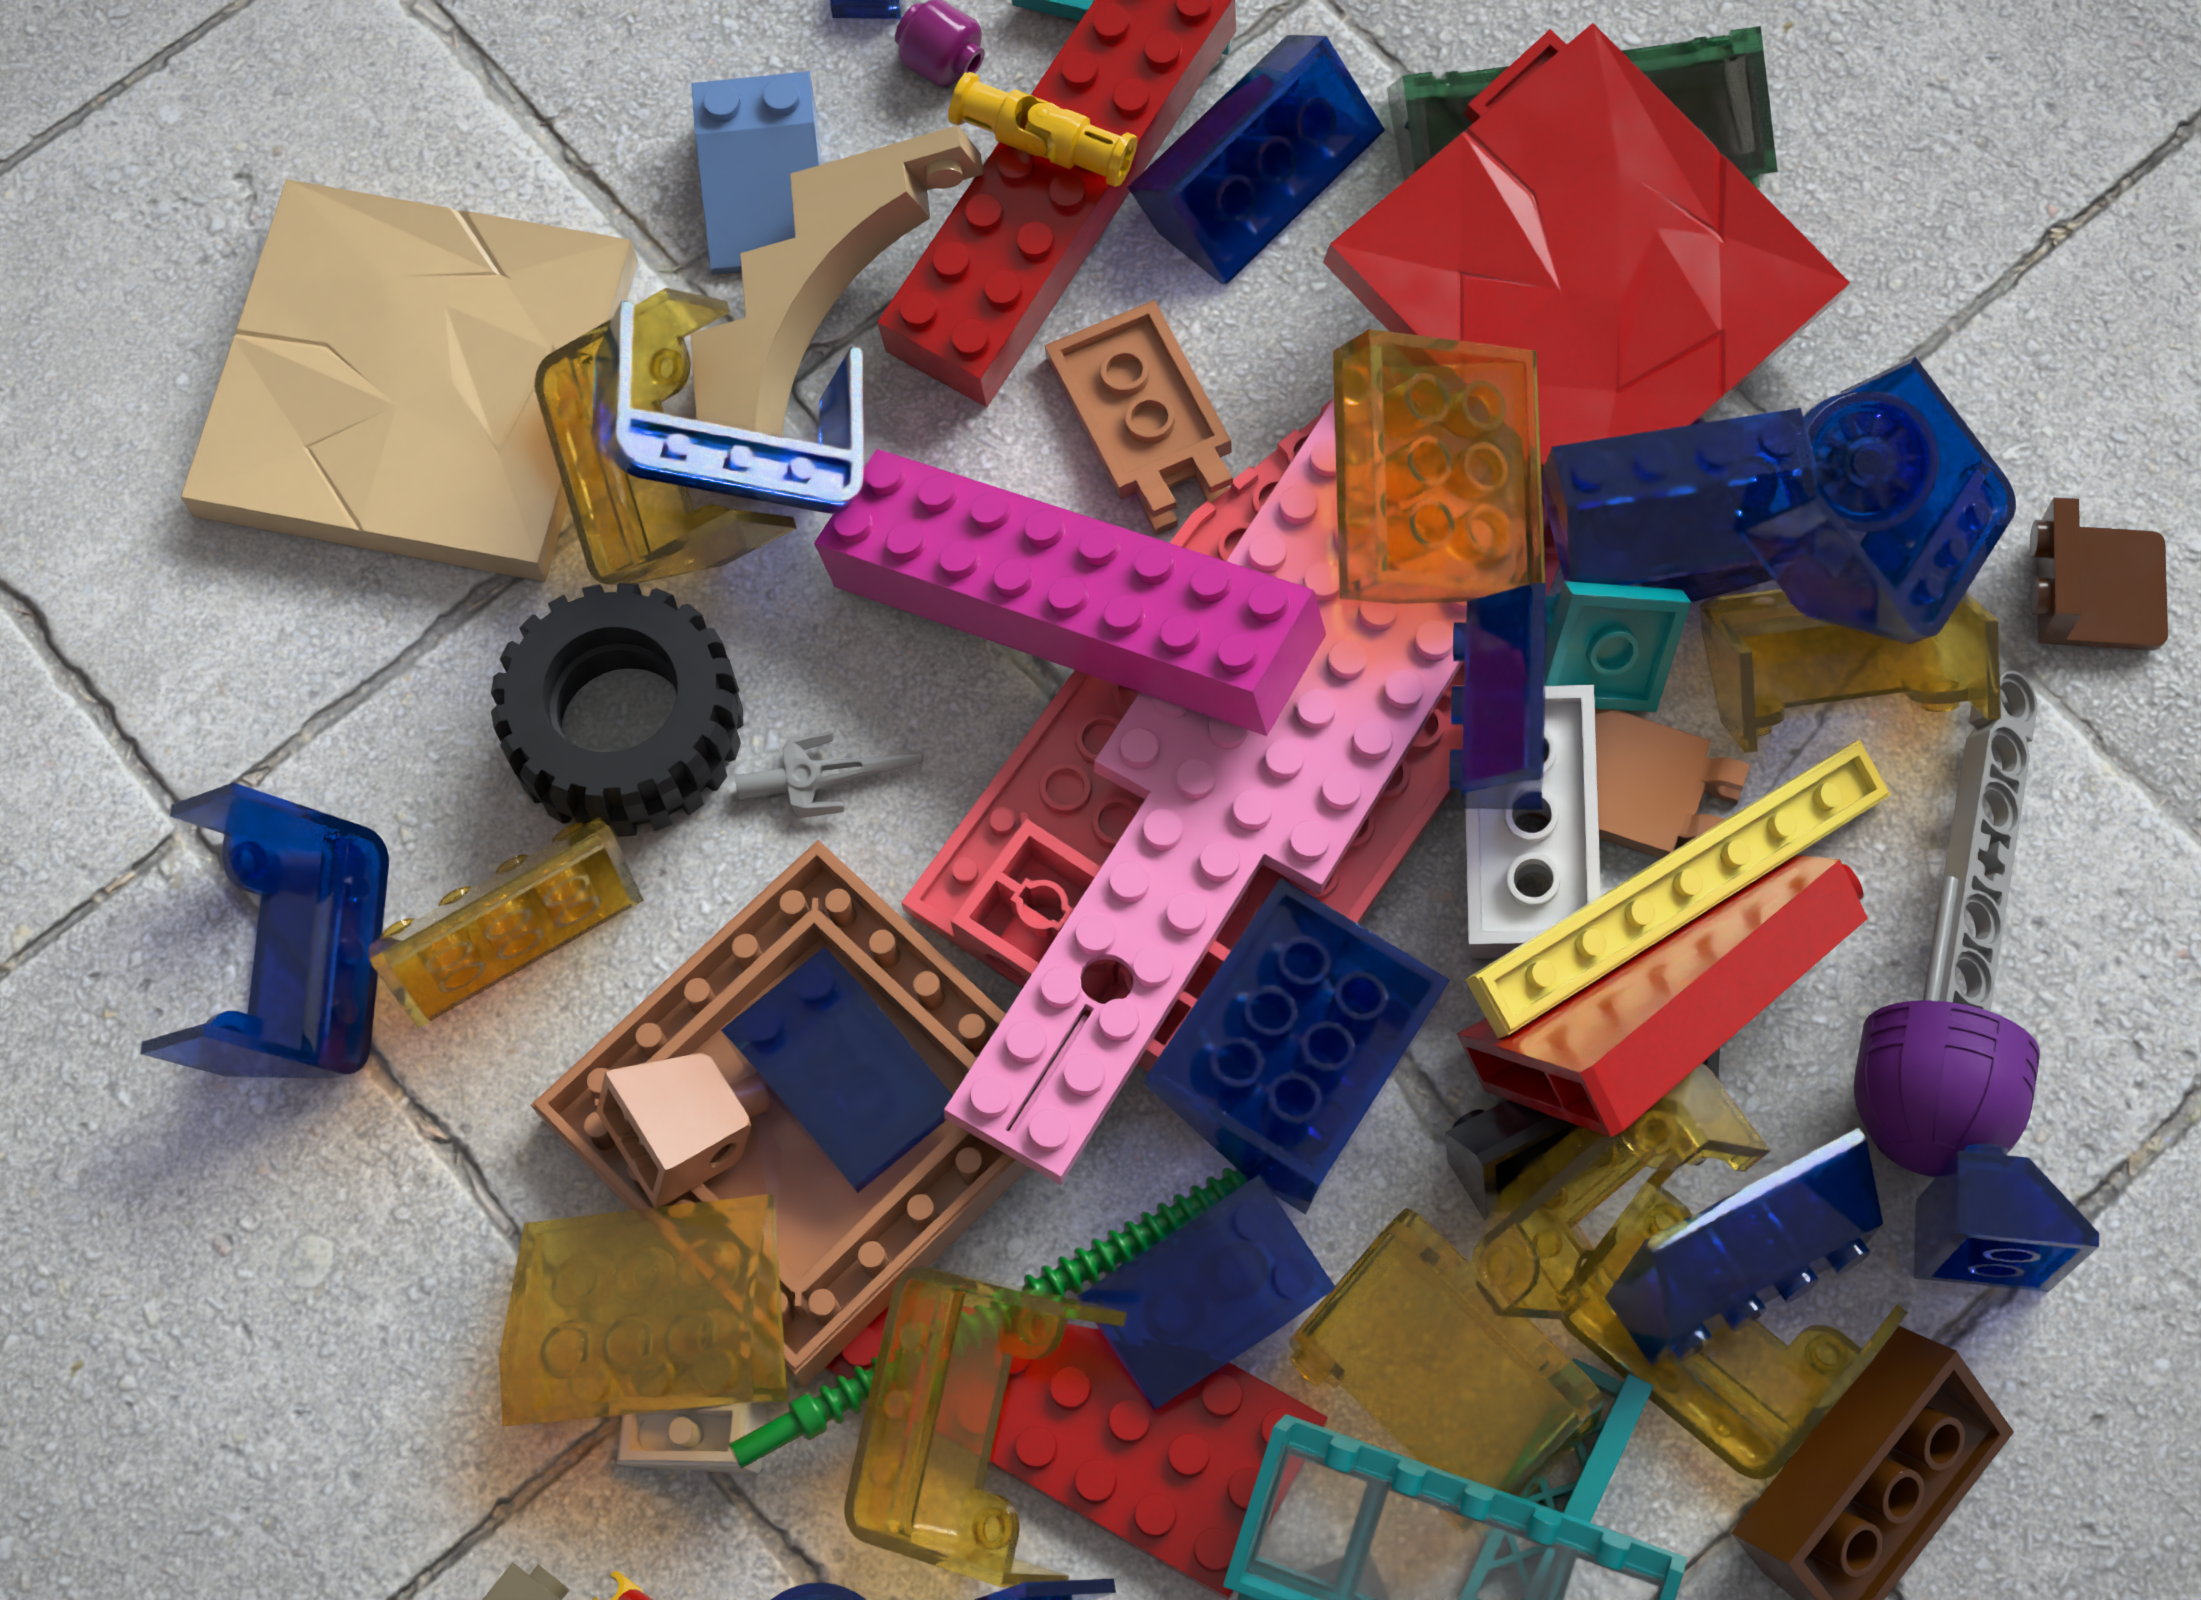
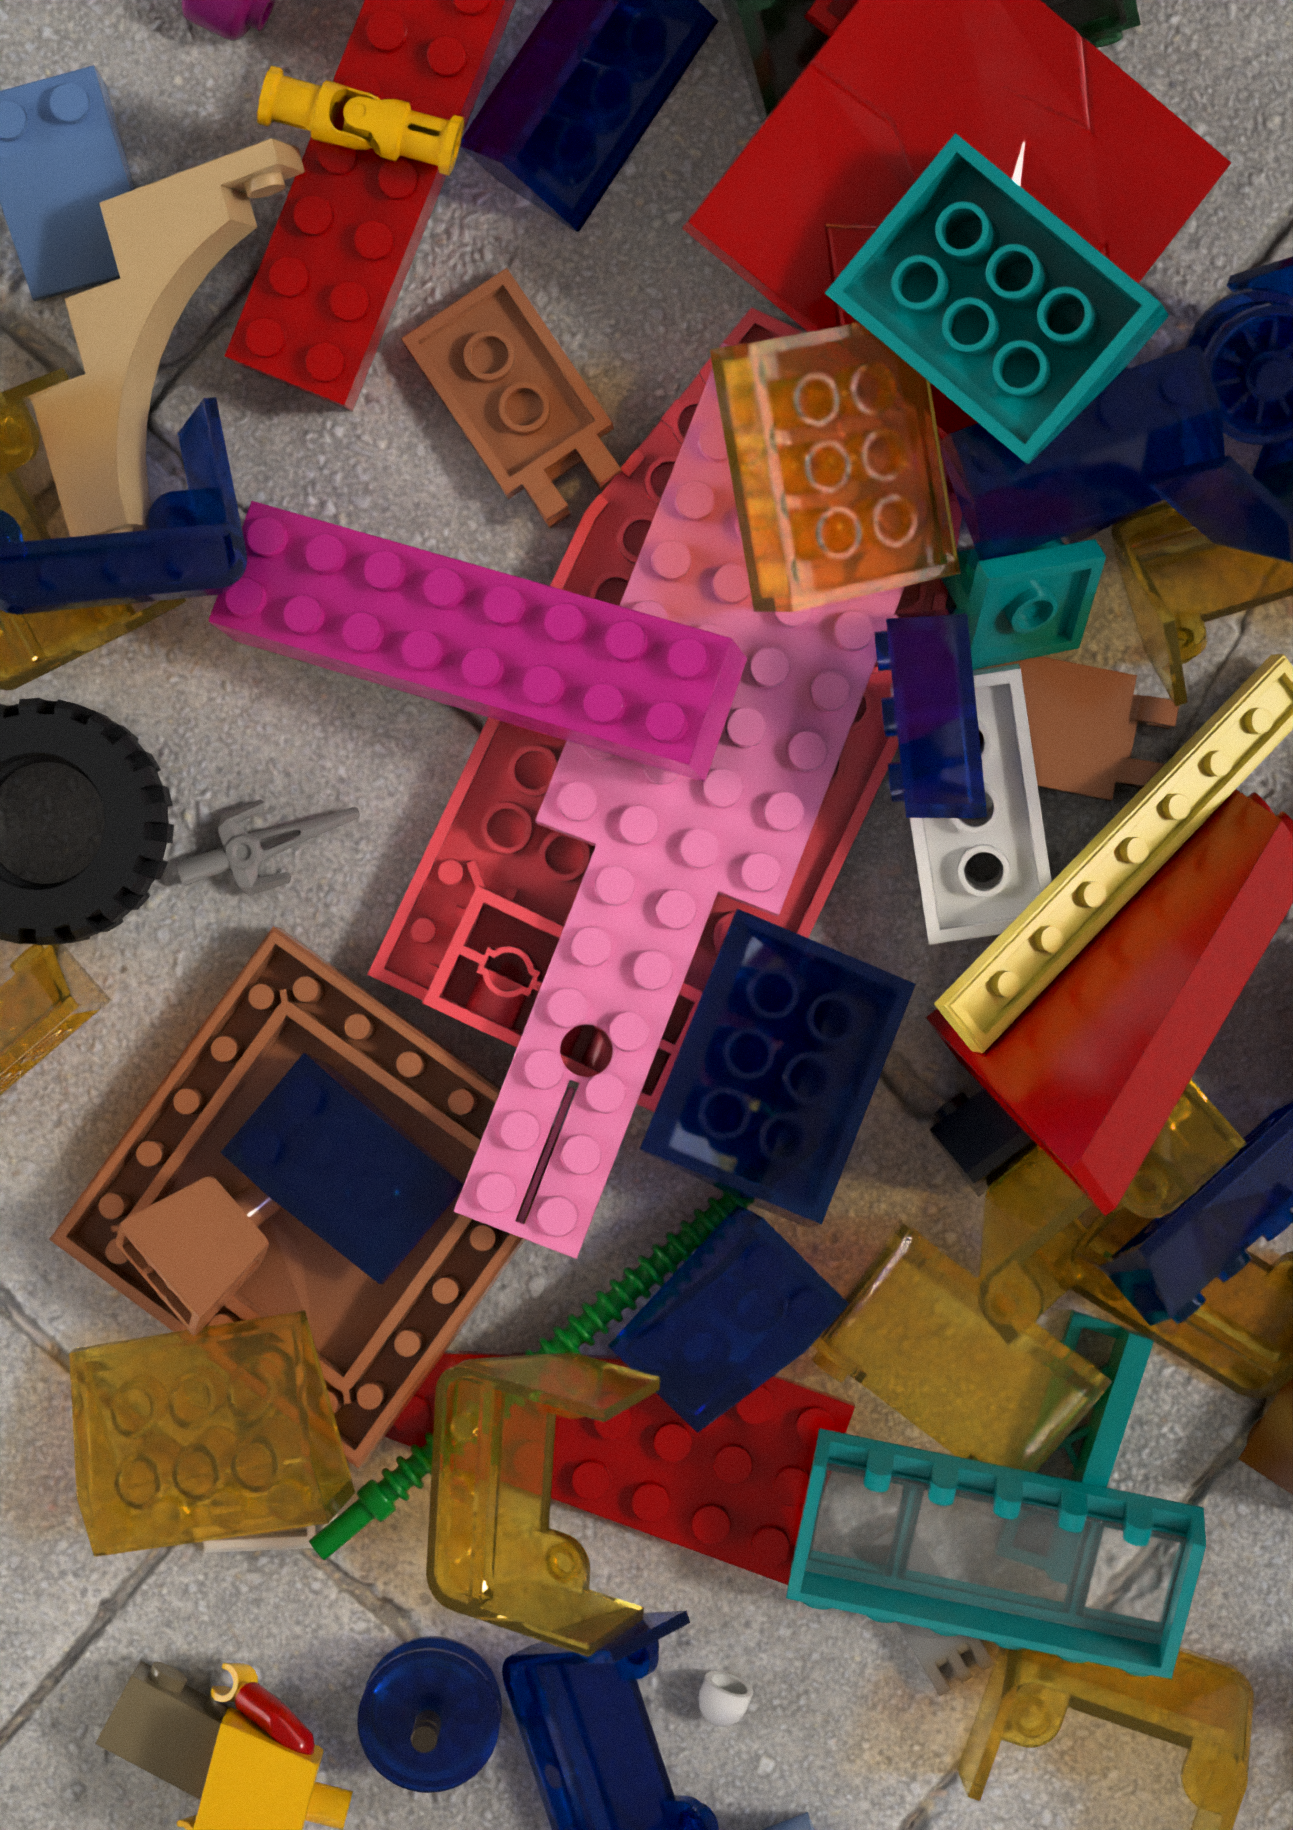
camera: 10 degrees left, 20 degrees up
(1615, 333) = (996, 300): none -> teal slope

